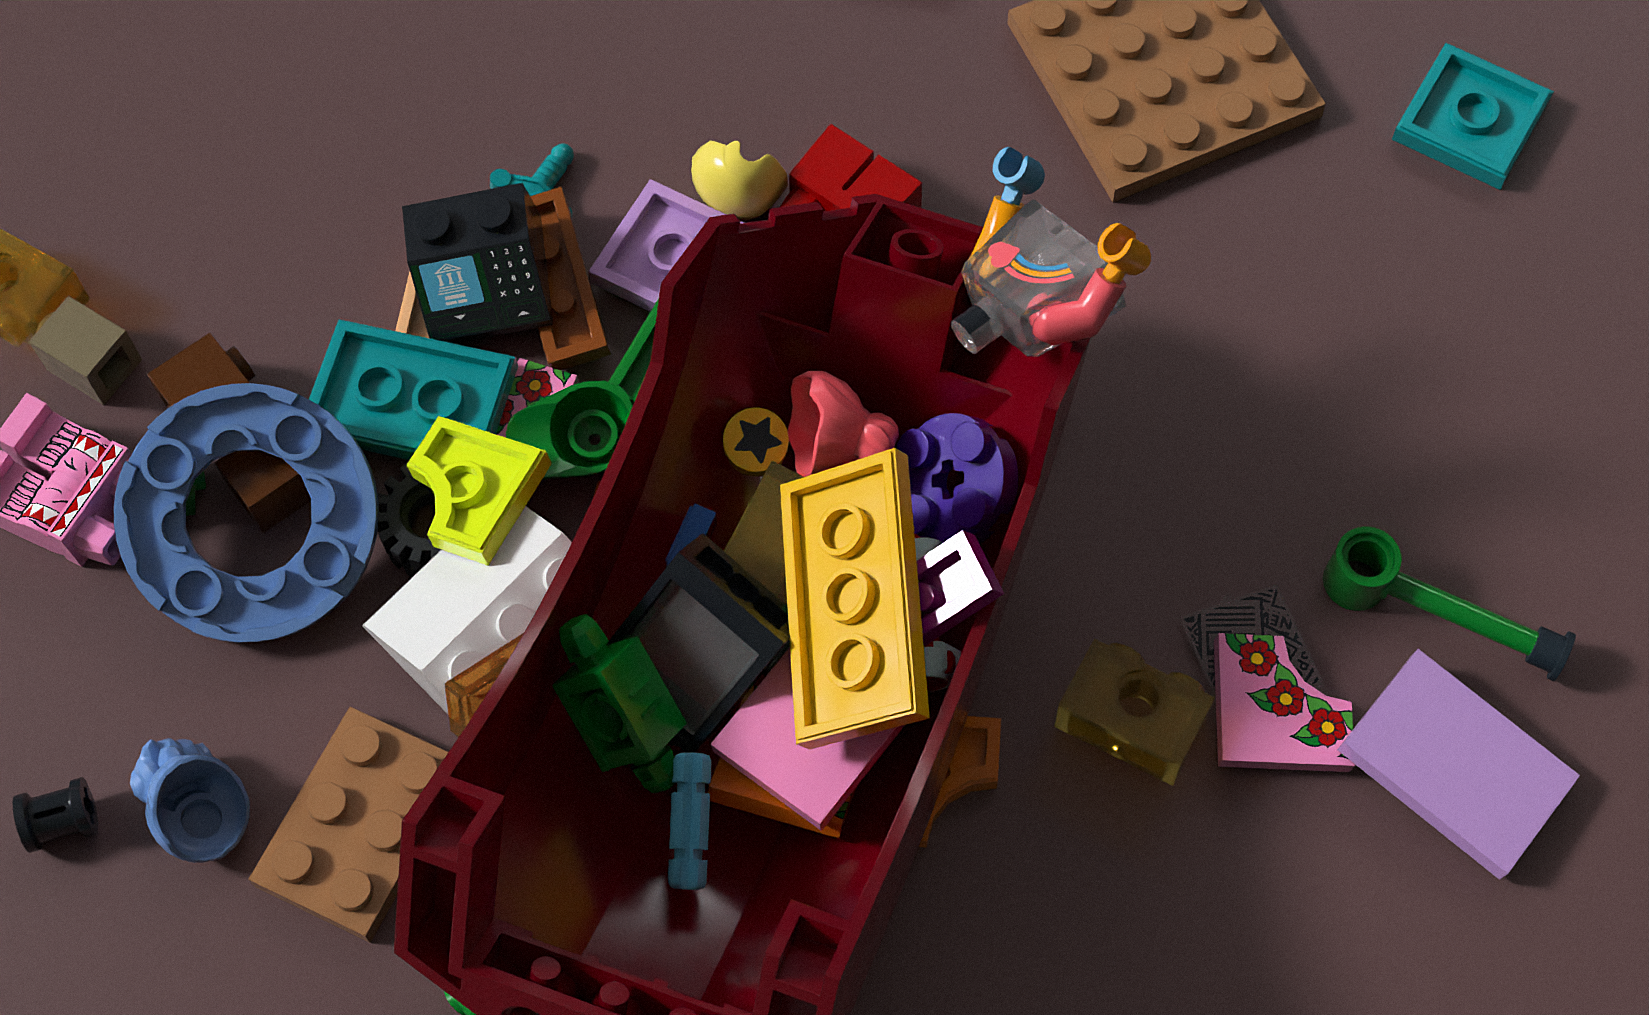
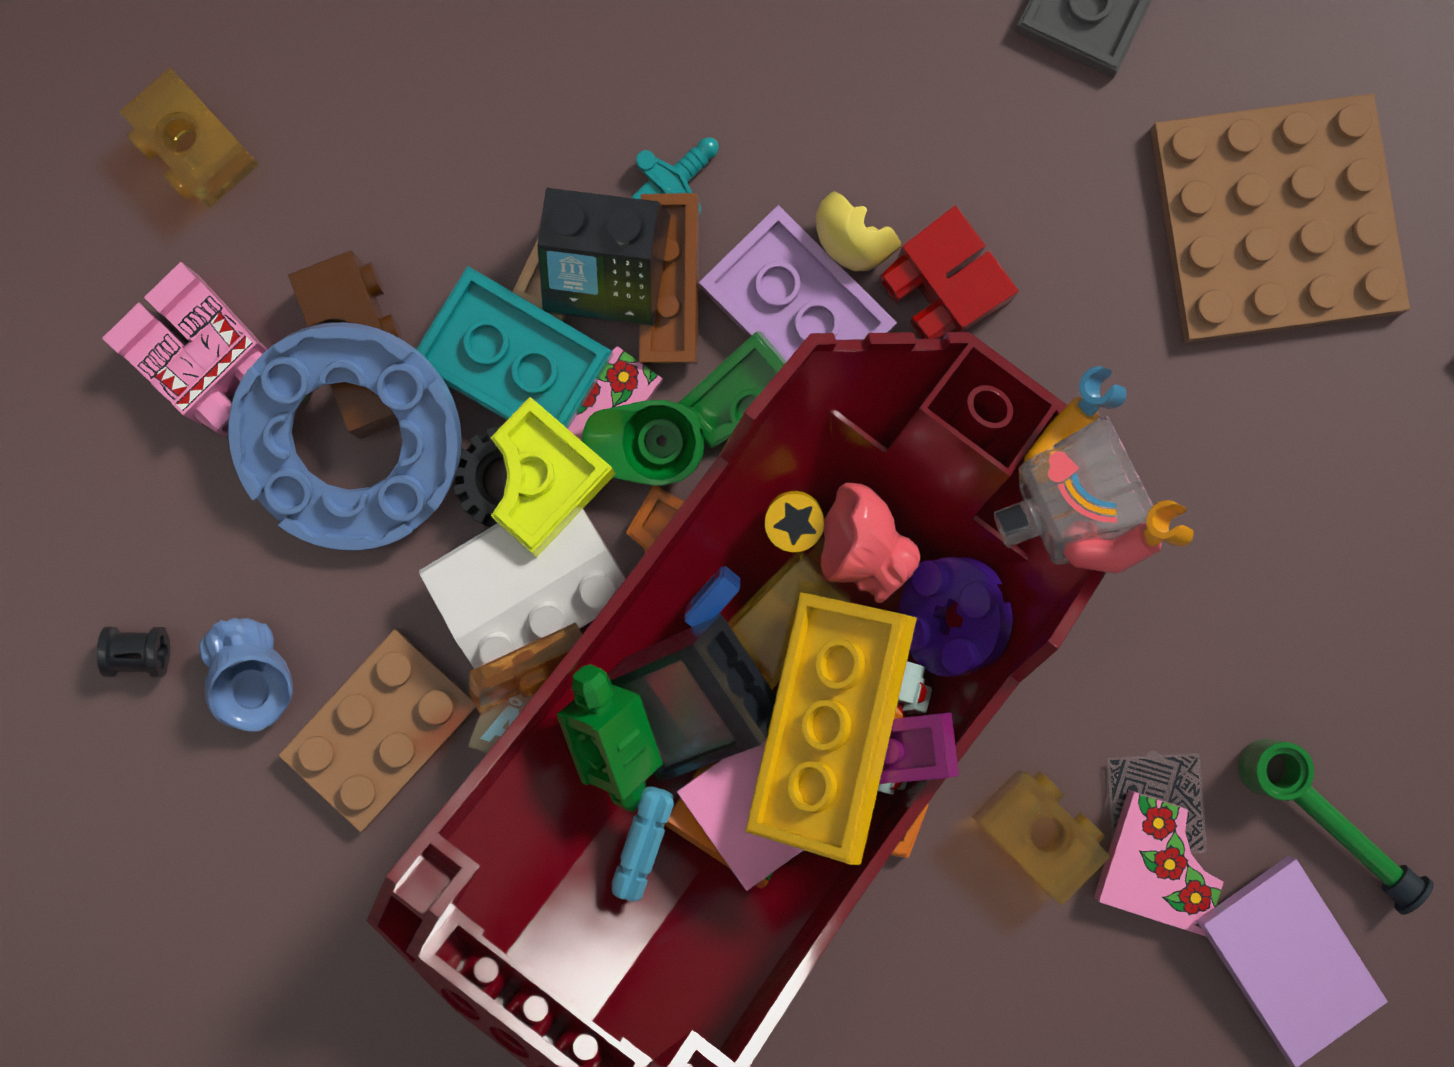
camera: 15 degrees right, 20 degrees up
(85, 349) = (241, 223): dark tan brick -> none

